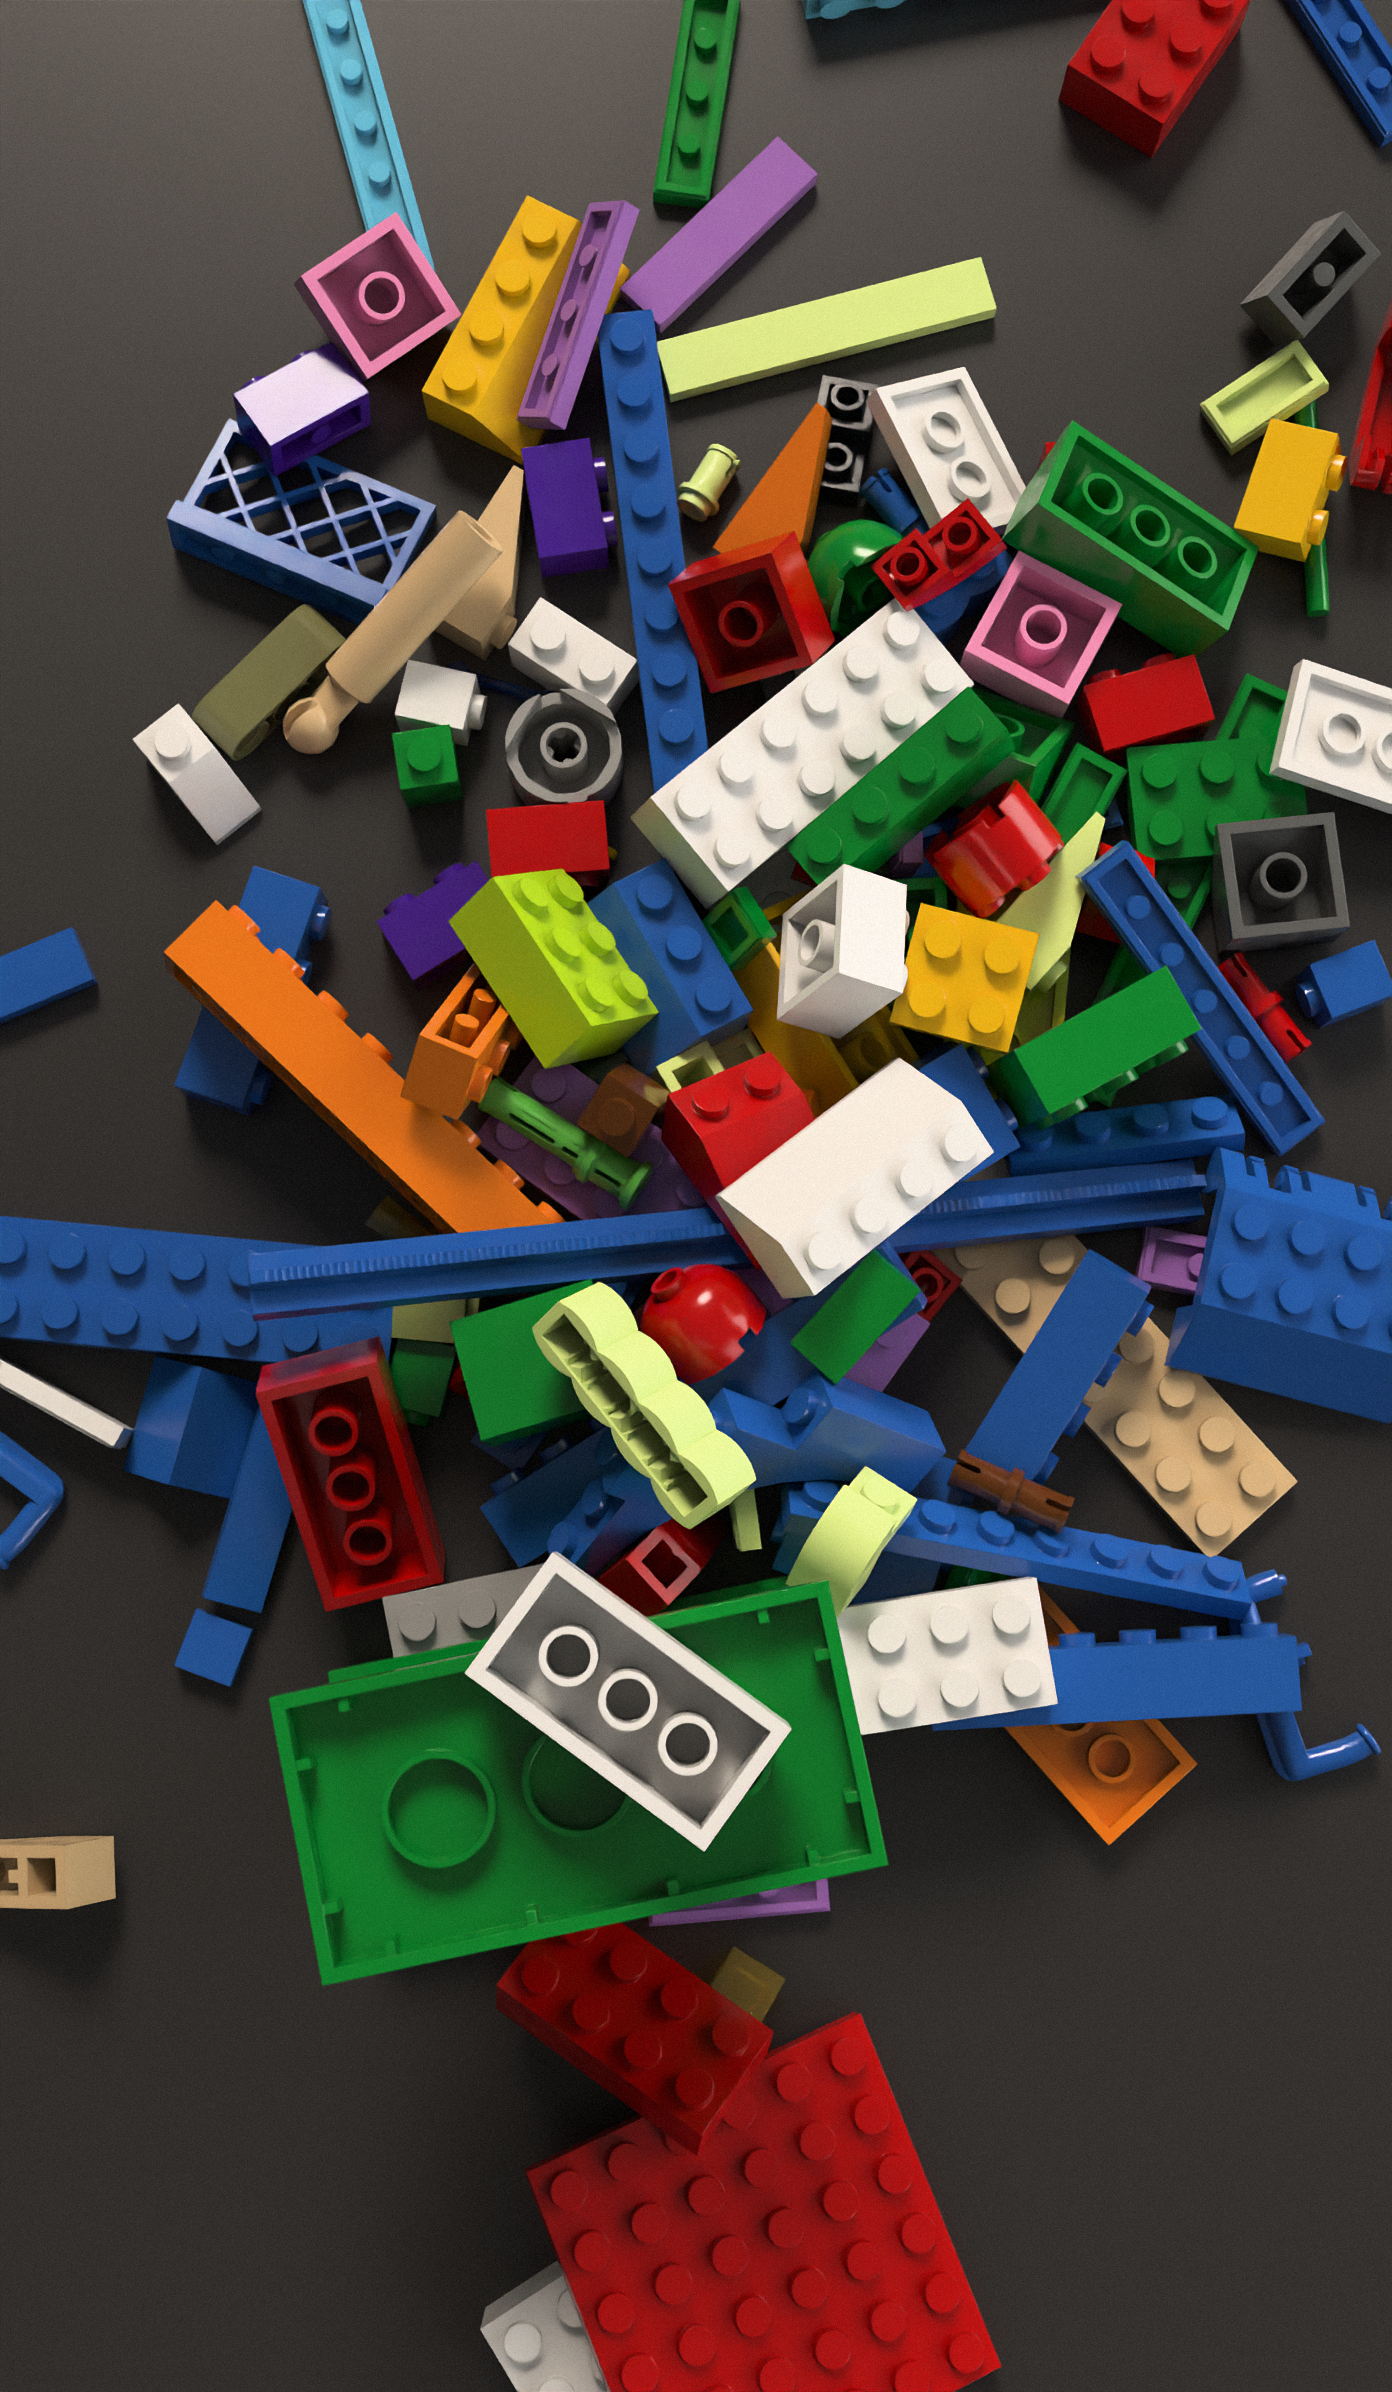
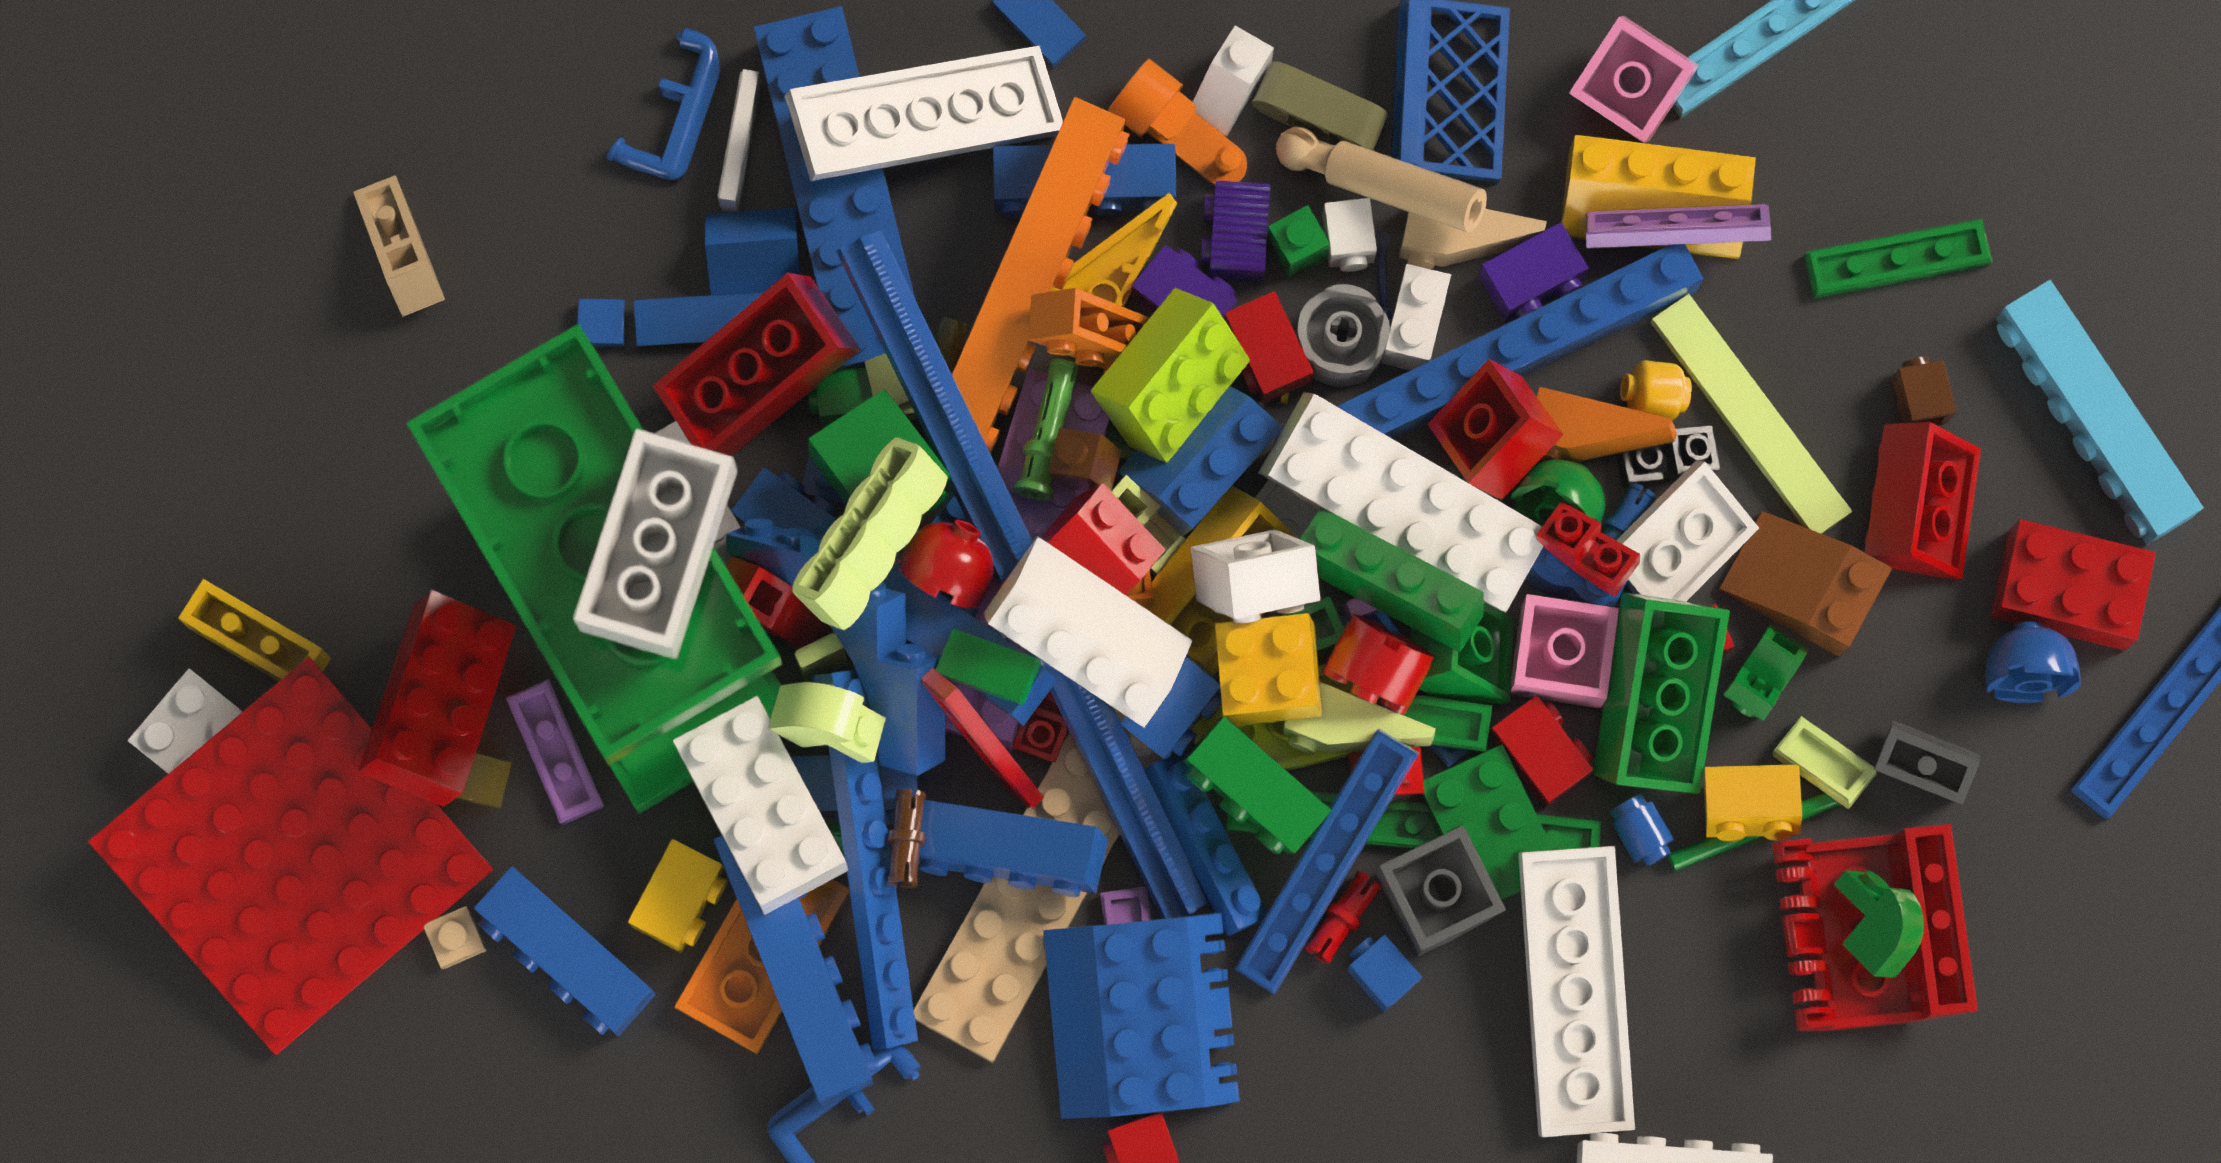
camera: 70 degrees right, 5 degrees down
(100, 1157) = (924, 112): none -> white plate
(216, 861) = (1156, 107): none -> orange piece
(302, 408) = (1533, 56): brick -> none
(374, 986) = (1120, 259): none -> yellow wing
(386, 832) = (1238, 230): none -> dark purple brick
(459, 2231) = (248, 632): none -> yellow brick
(701, 494) = (1594, 370): yellowish green pin -> none
(719, 234) = (1794, 312): medium lavender tile -> none
(739, 928) = (1248, 497): green tile -> none
(760, 419) = (1656, 389): none -> yellow head
(871, 124) = (1923, 392): none -> reddish brown brick
(923, 1358) = (981, 738): none -> red tile
(926, 2089) = (454, 937): none -> tan plate
(973, 1795) = (678, 896): none -> yellow brick
(995, 175) = (1923, 500): none -> red slope
(995, 1960) = (564, 951): none -> blue brick
(1049, 335) = (1806, 582): none -> dark orange slope
(1140, 422) = (1765, 673): none -> green brick
(1233, 120) = (2031, 663): none -> blue cylinder
(1275, 630) = (1641, 830): none -> blue brick

